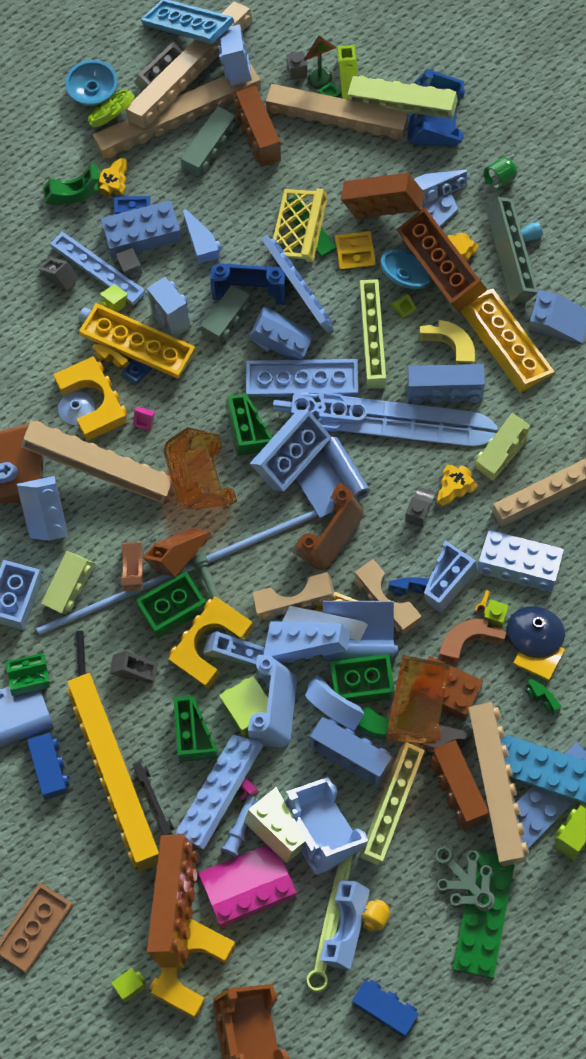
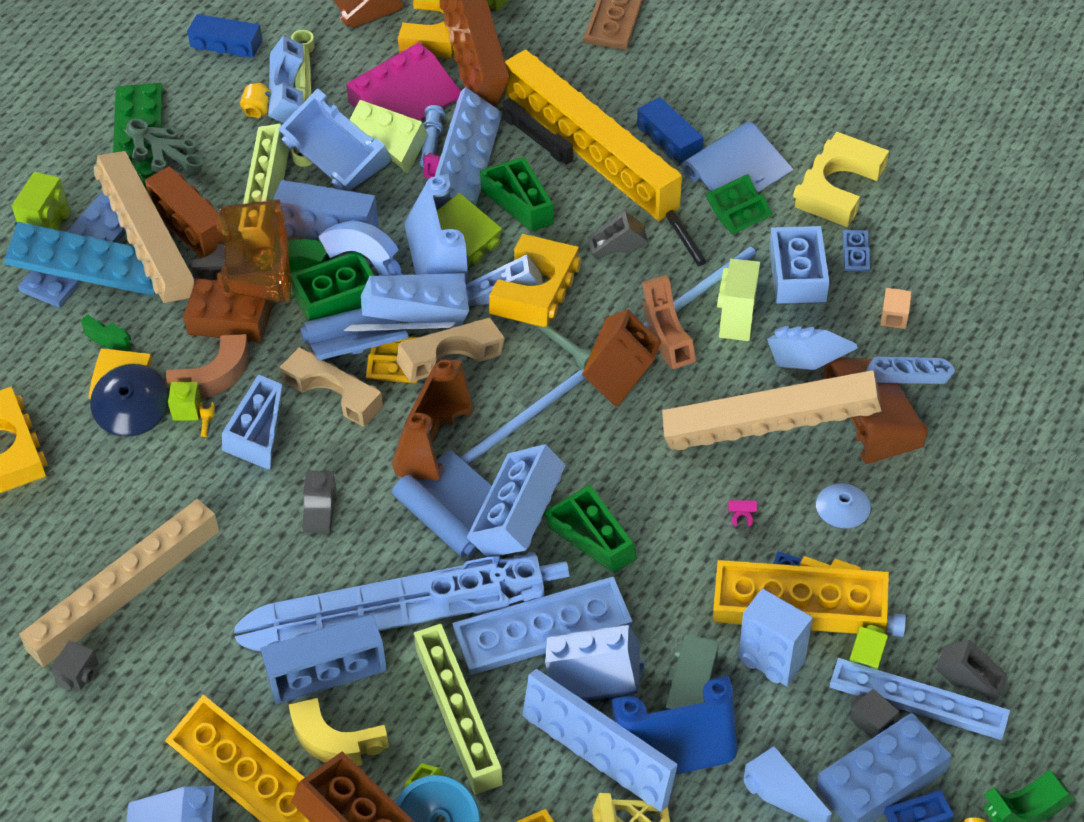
camera: 160 degrees right, 15 degrees down
(89, 374) = (840, 541): yellow arch -> none
(171, 605) = (597, 296): green brick -> none
(193, 470) = (631, 448): clear orange windscreen -> none
(401, 586) = (315, 405): blue slope -> none
(455, 484) = (277, 545): yellow rock -> none
(503, 447) = (219, 602): yellowish green wedge -> none
(520, 561) = (165, 475): bracket -> none

